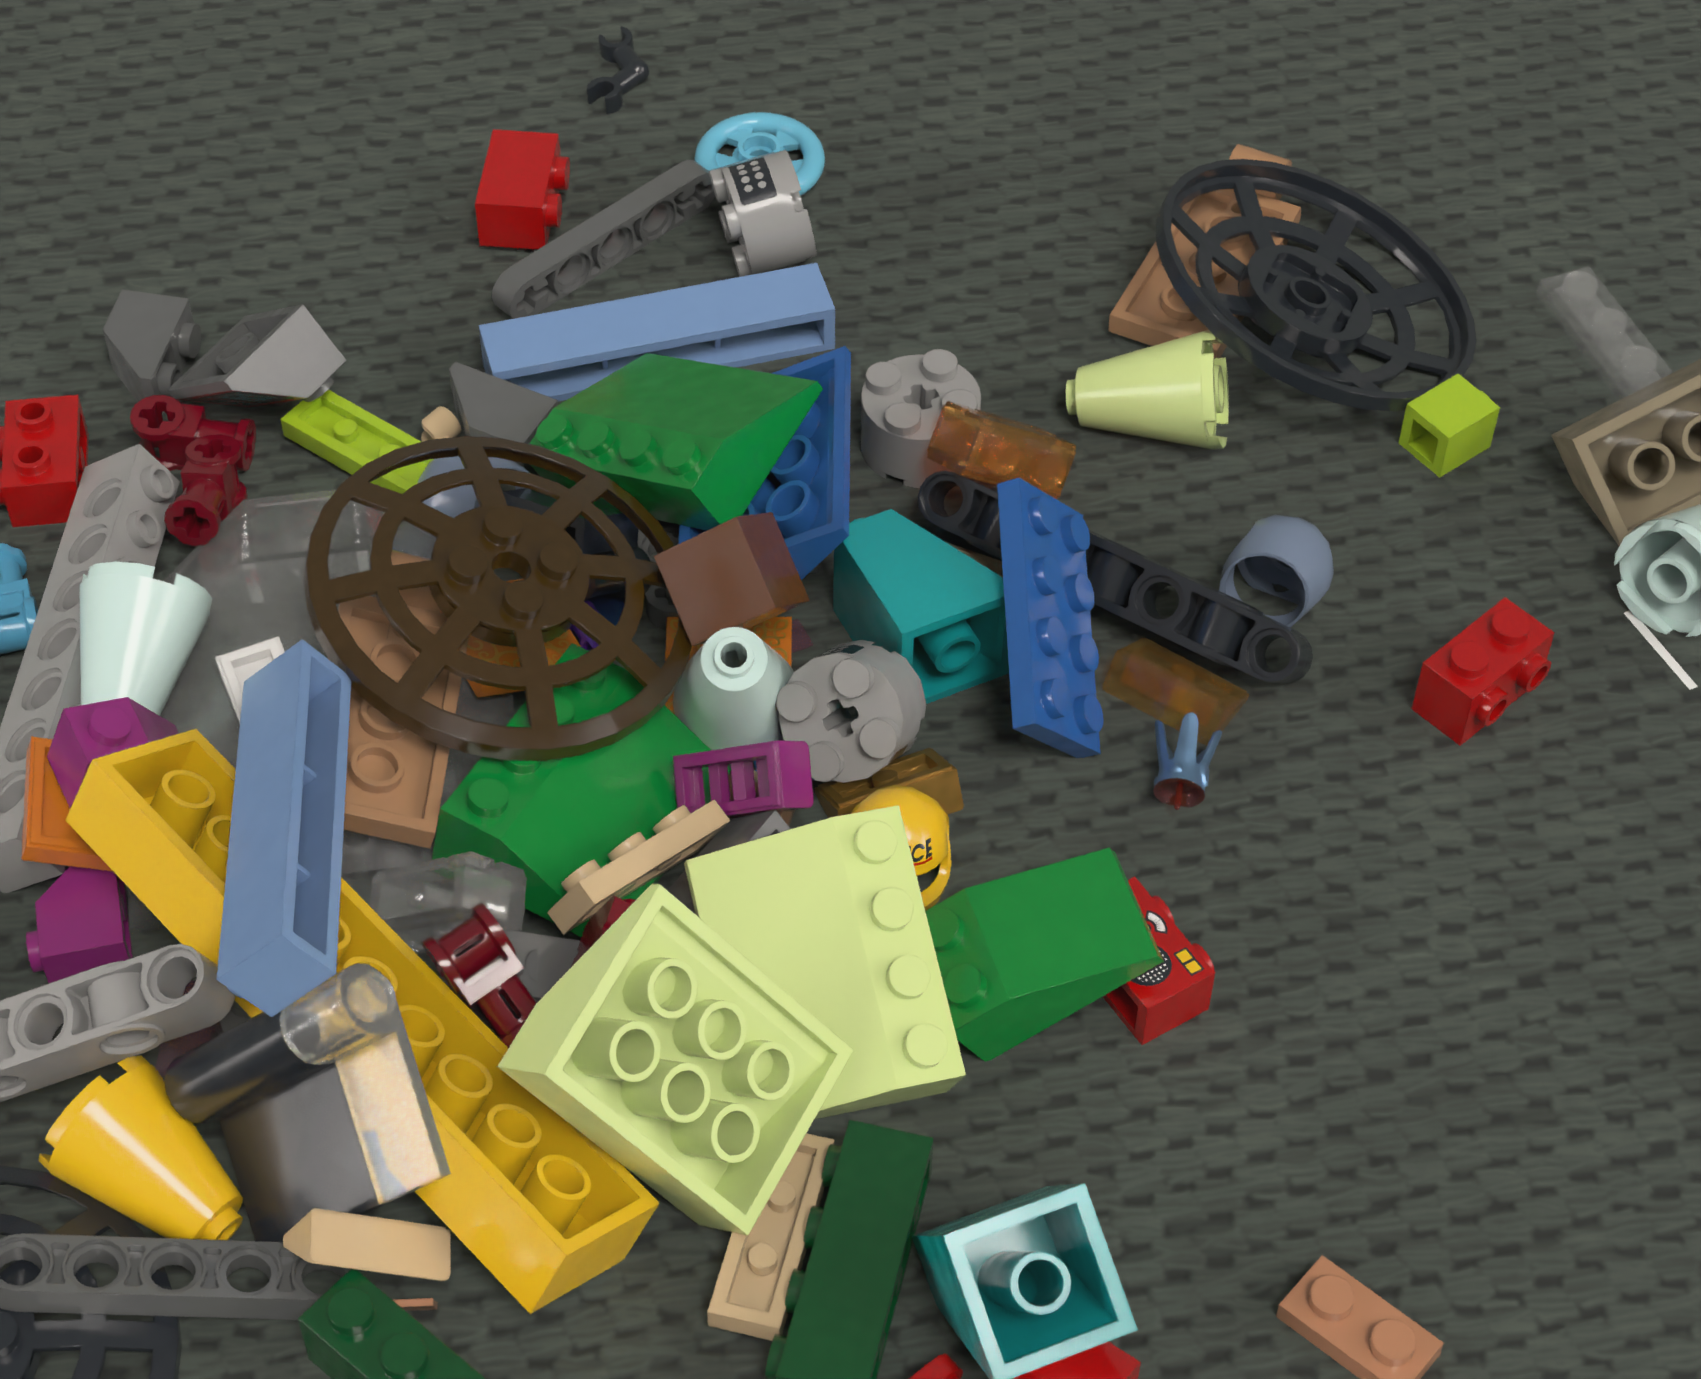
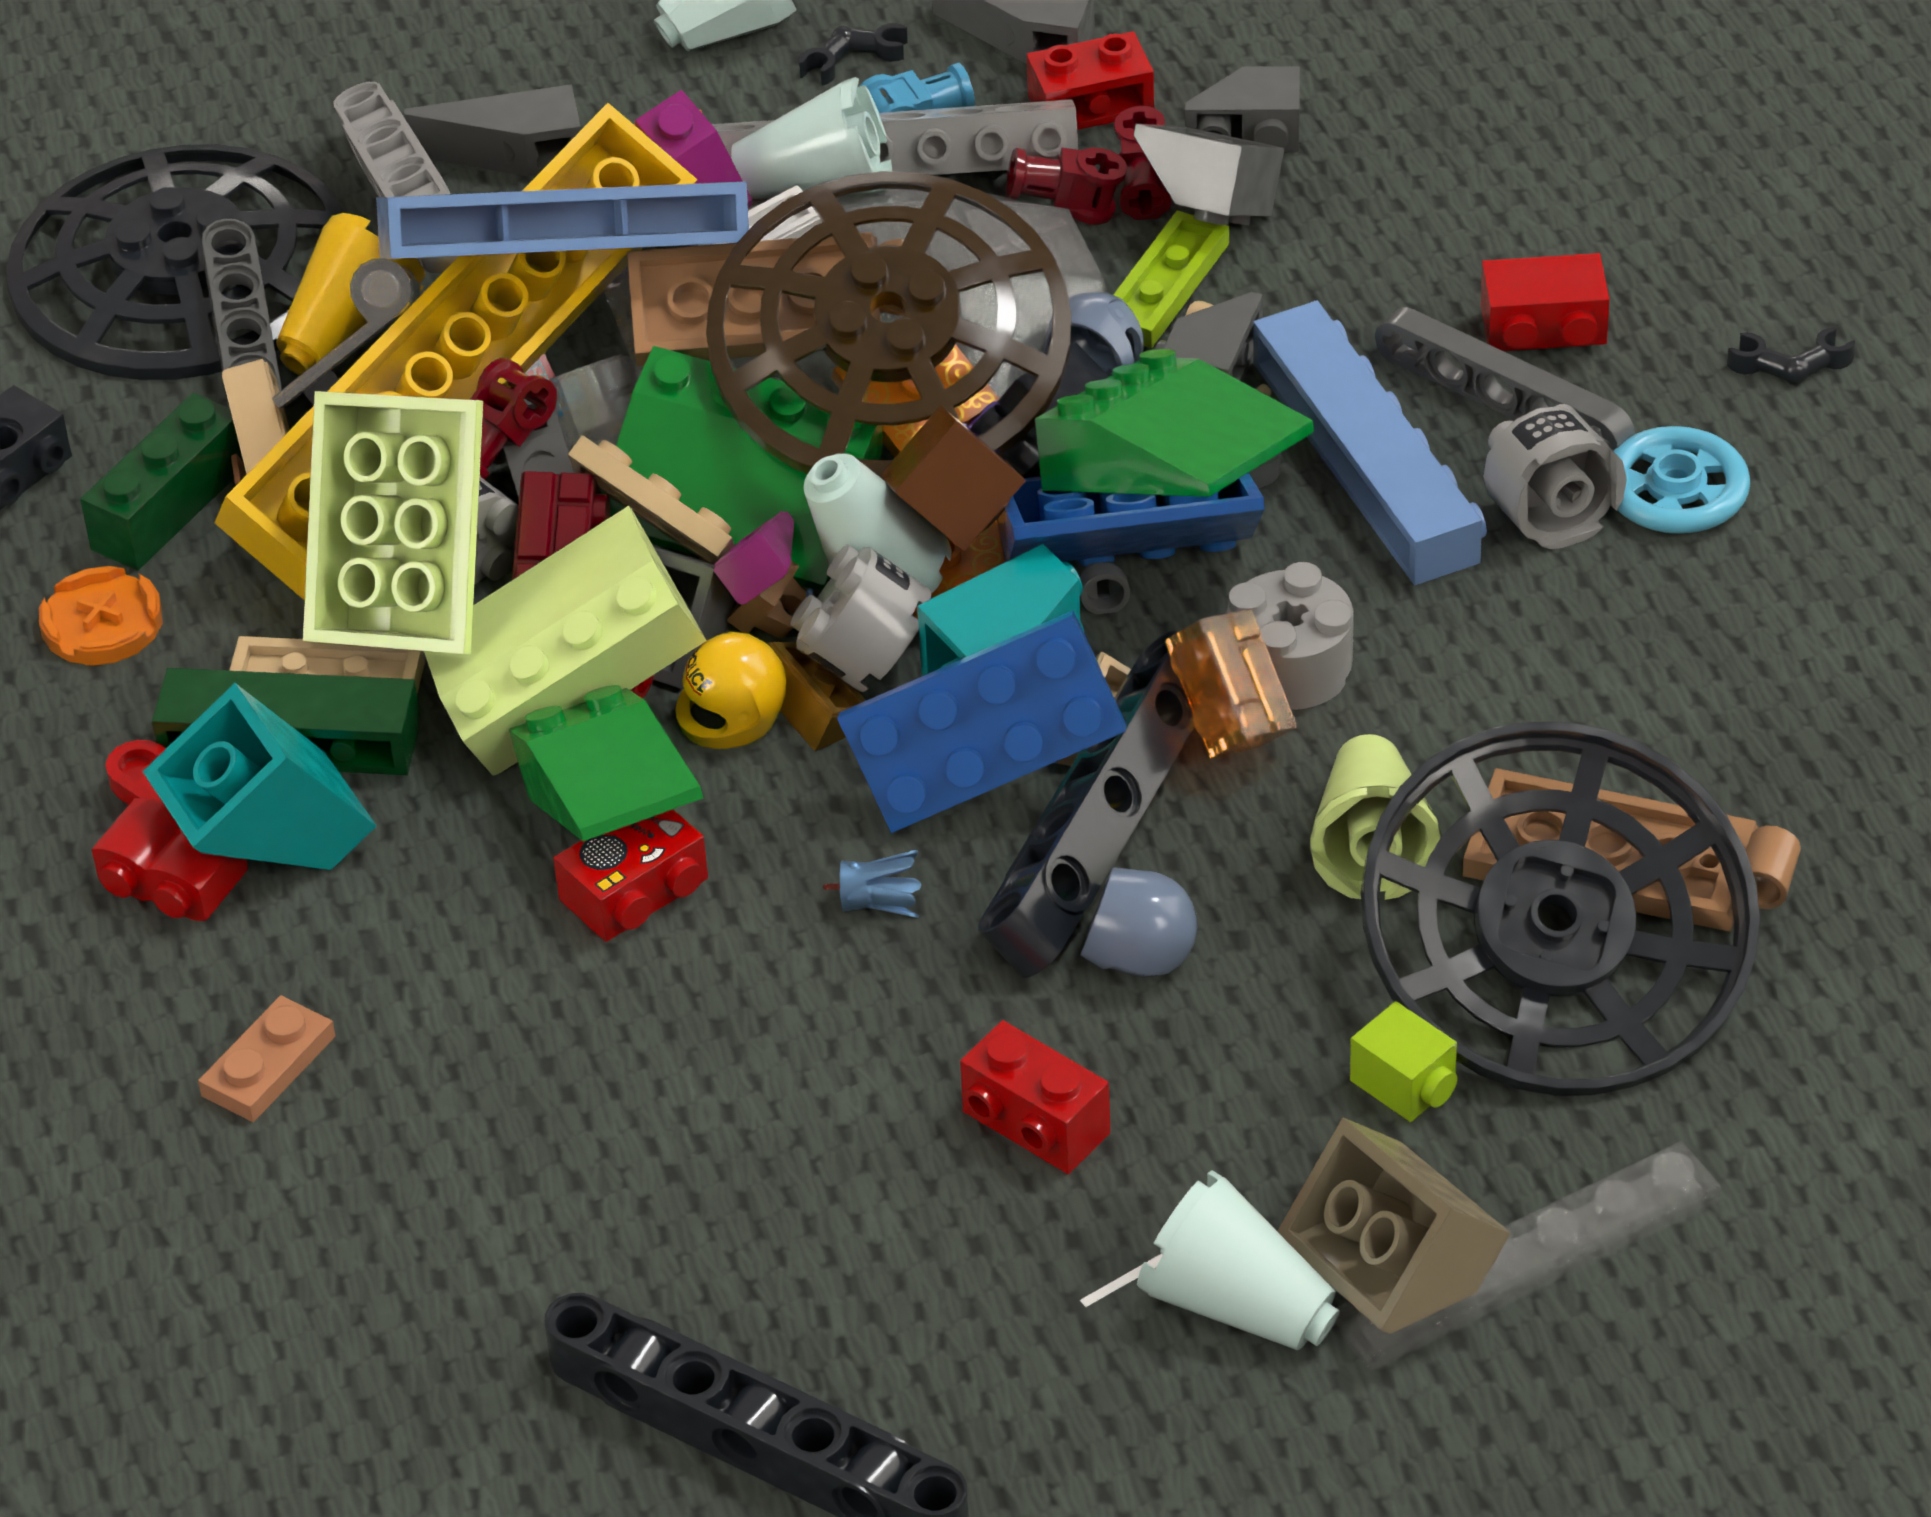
camera: 85 degrees right, 5 degrees down
(1172, 687) = (979, 879): clear orange slope -> none

